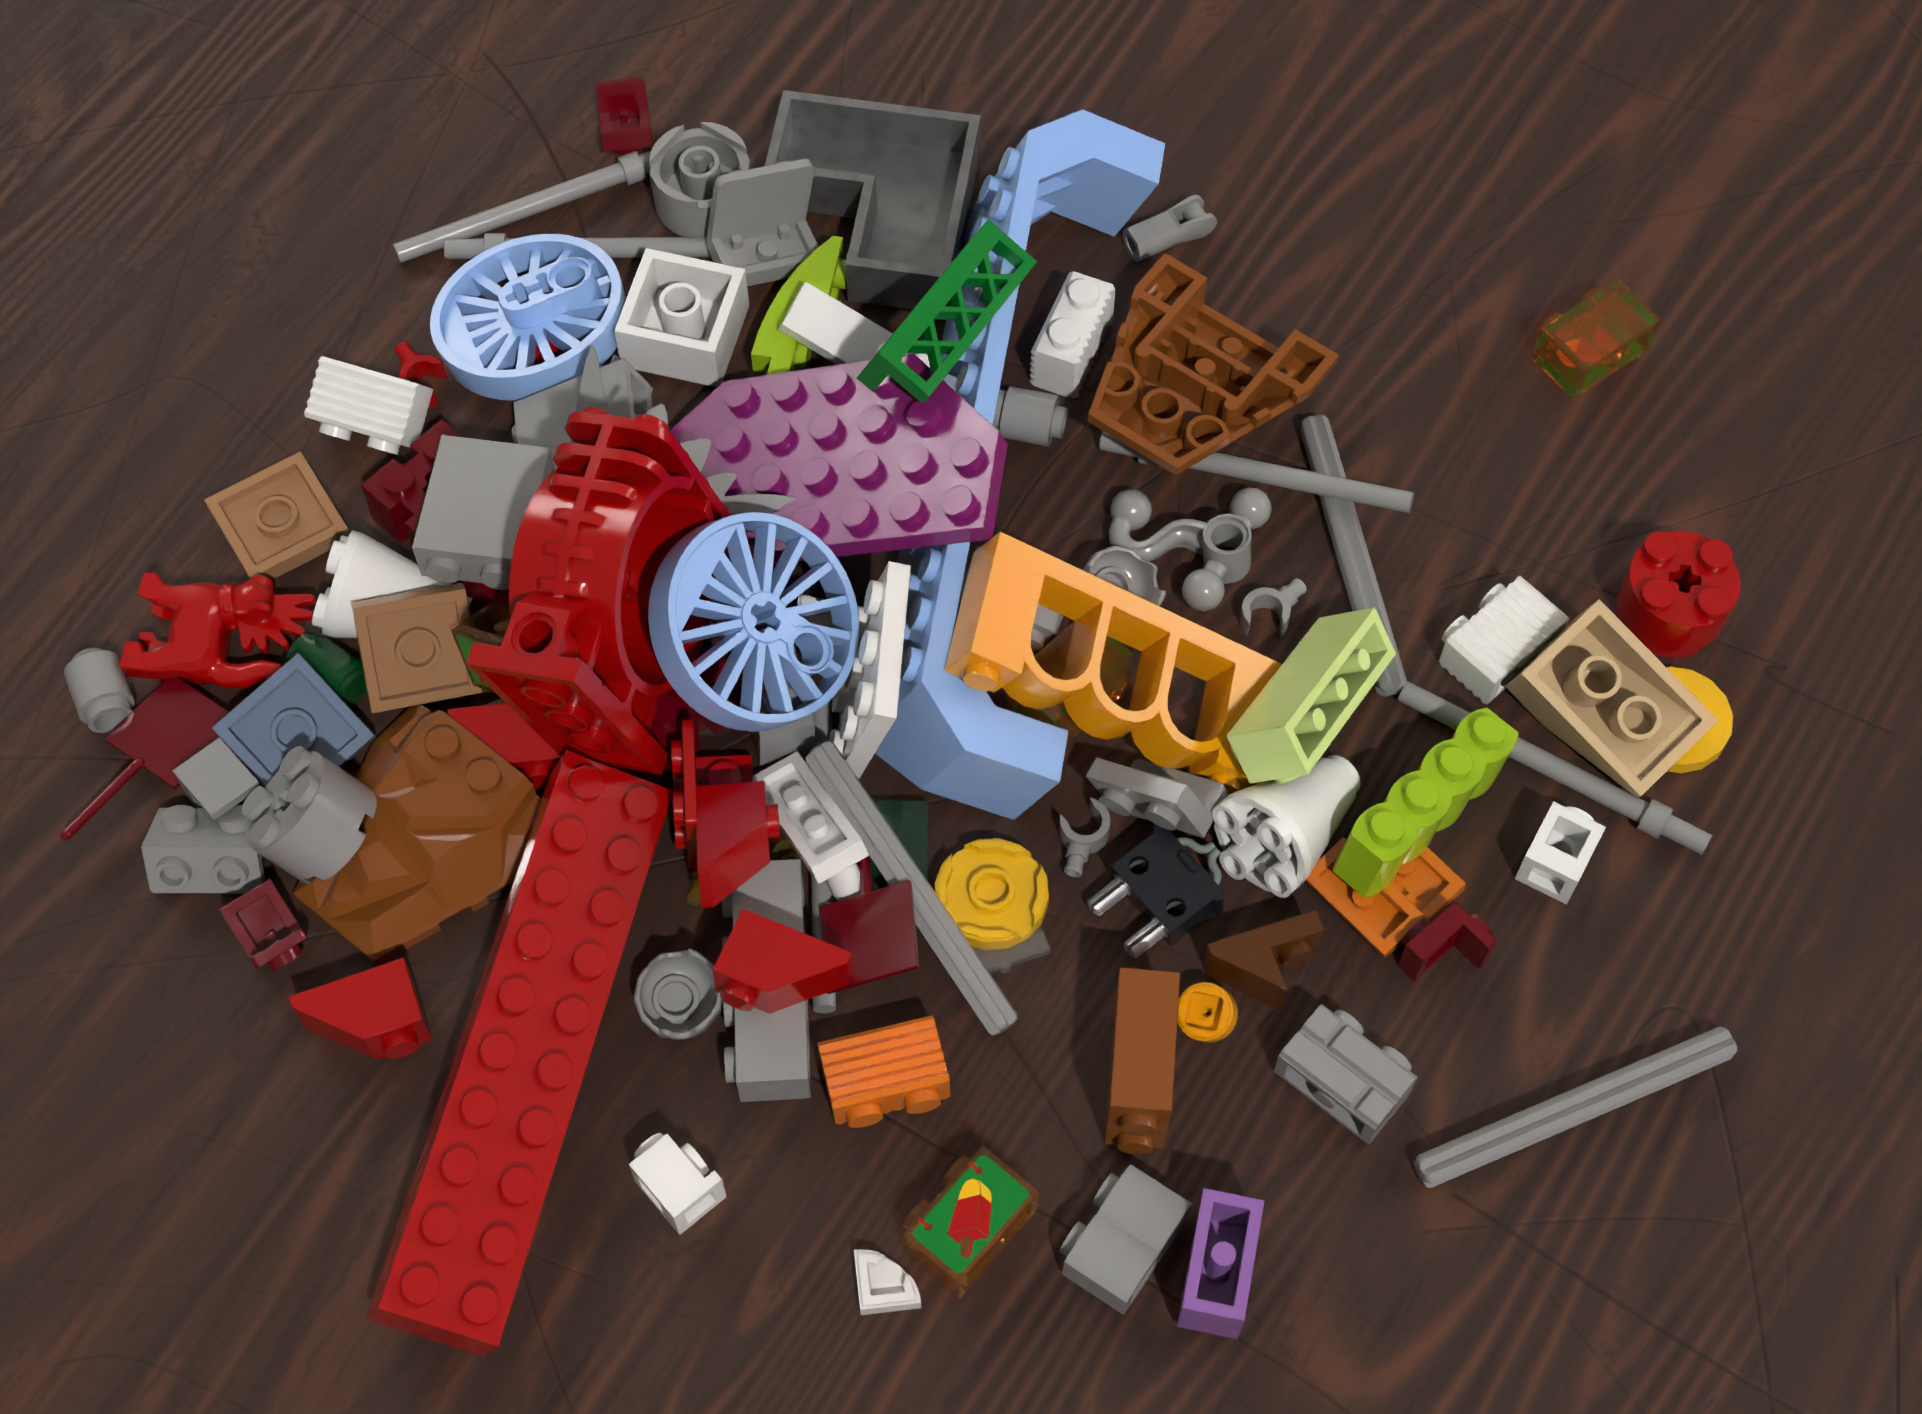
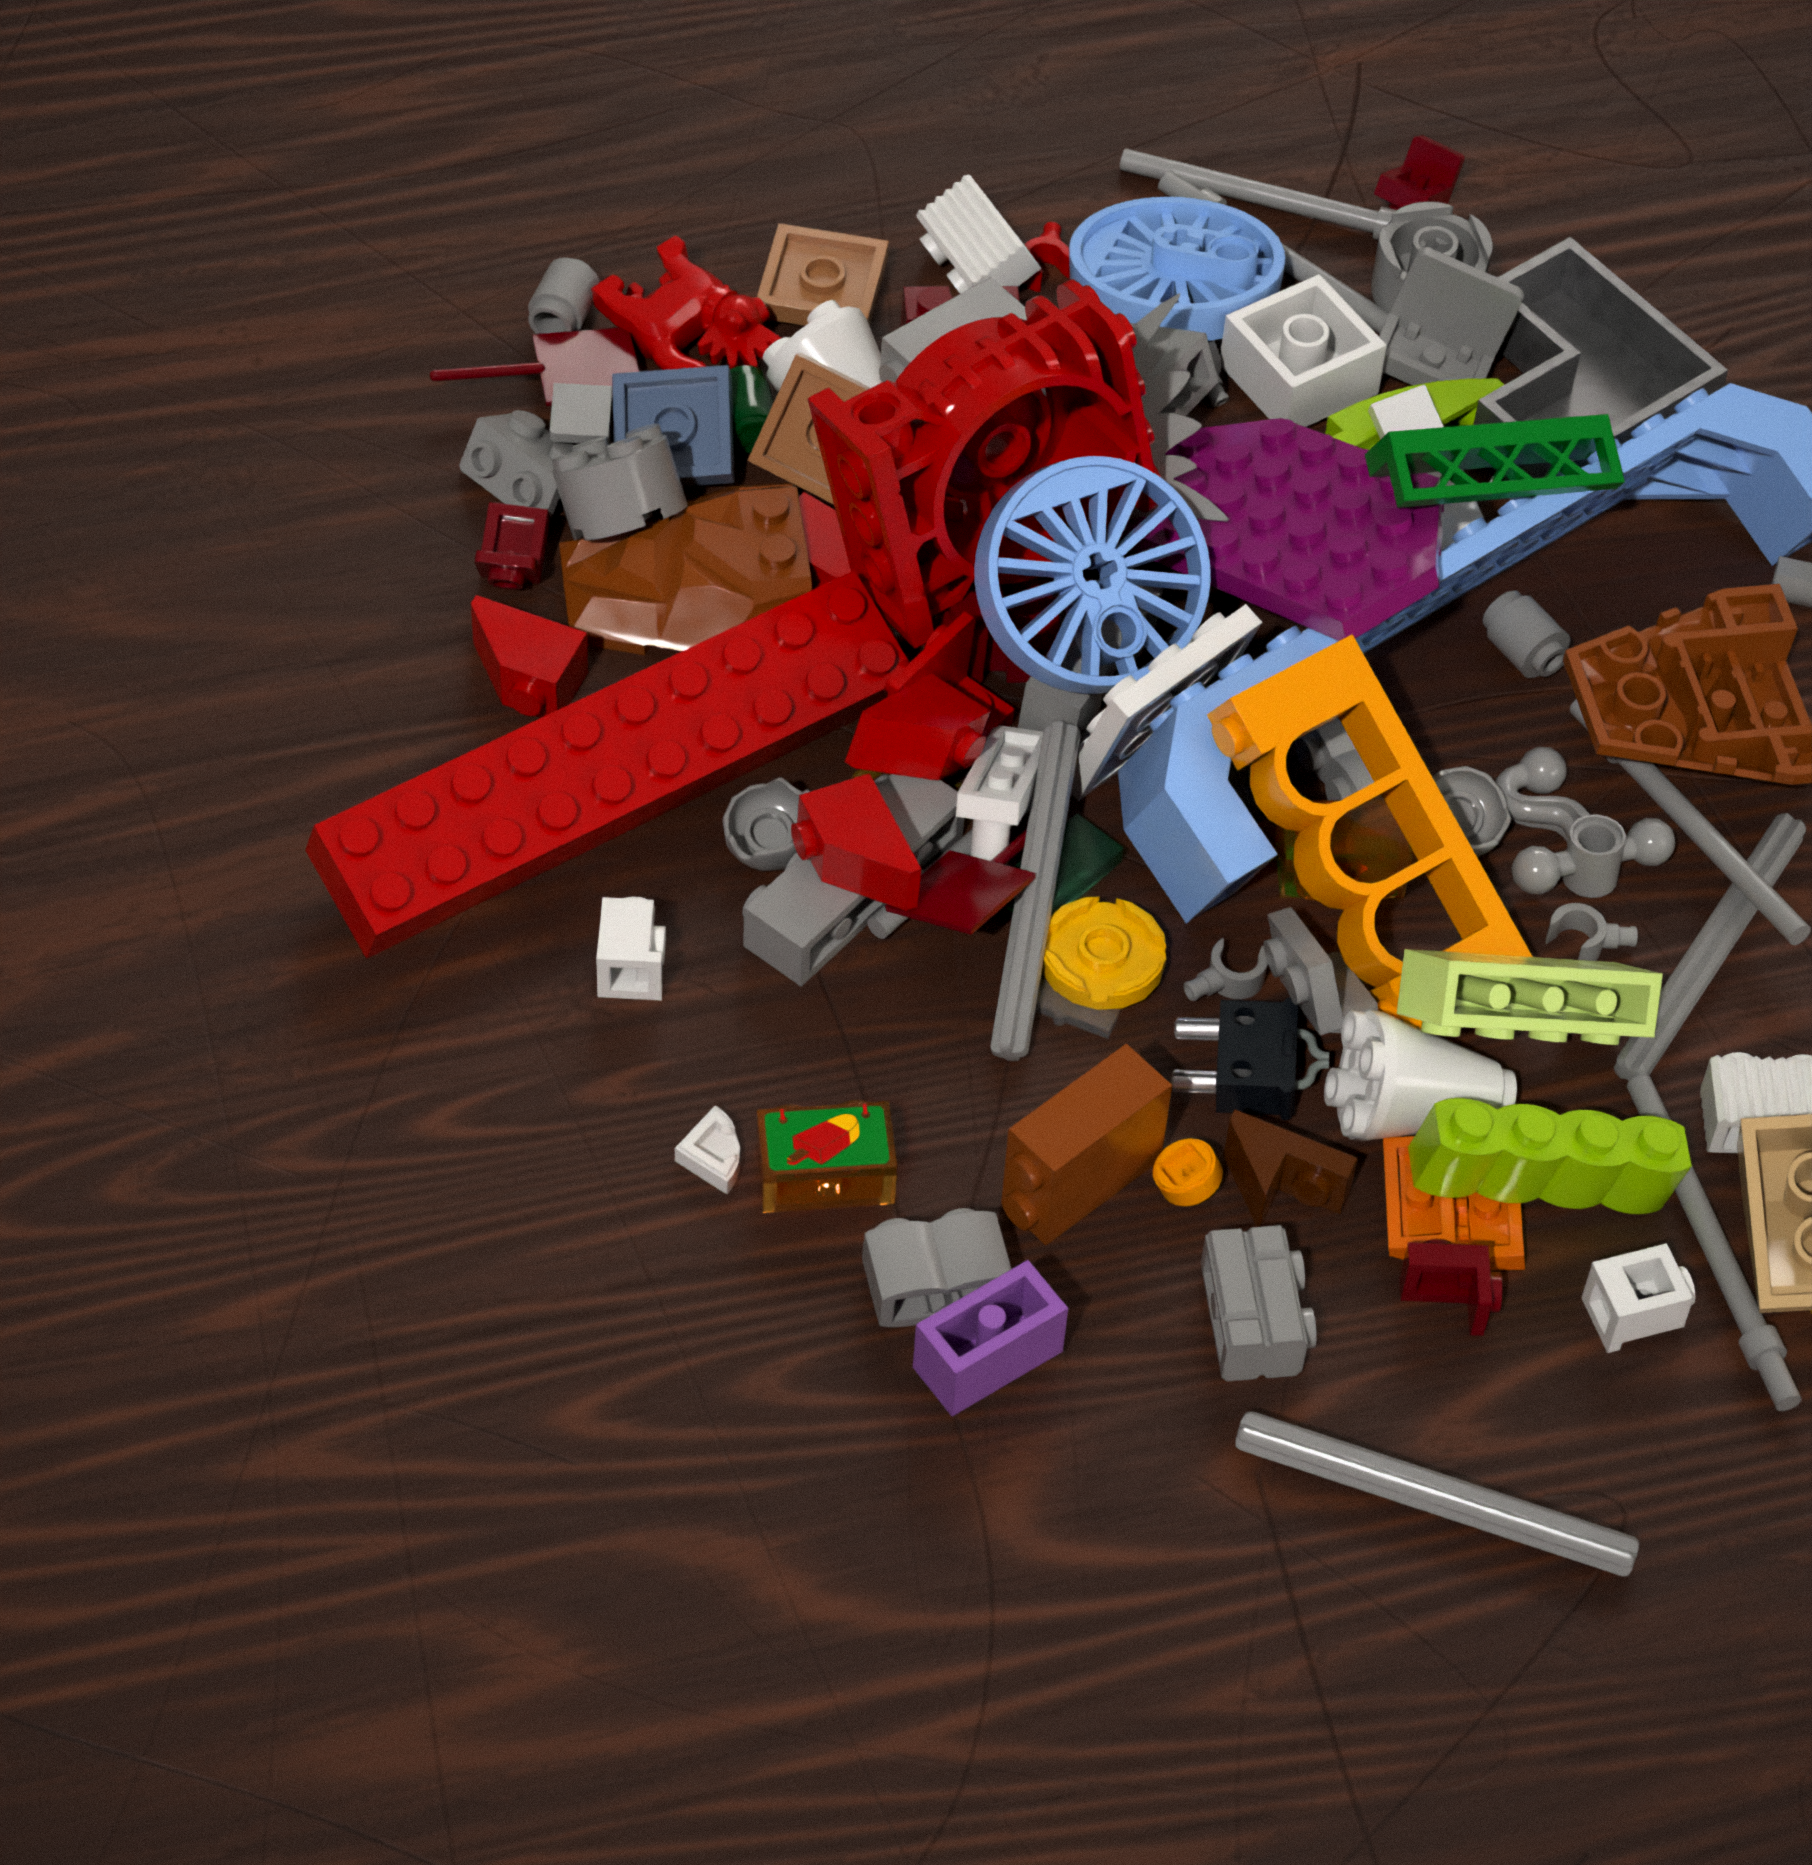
camera: 40 degrees right, 10 degrees down
(884, 1072) = (873, 1002): orange brick -> none
(1072, 335) = (1634, 593): white brick -> none

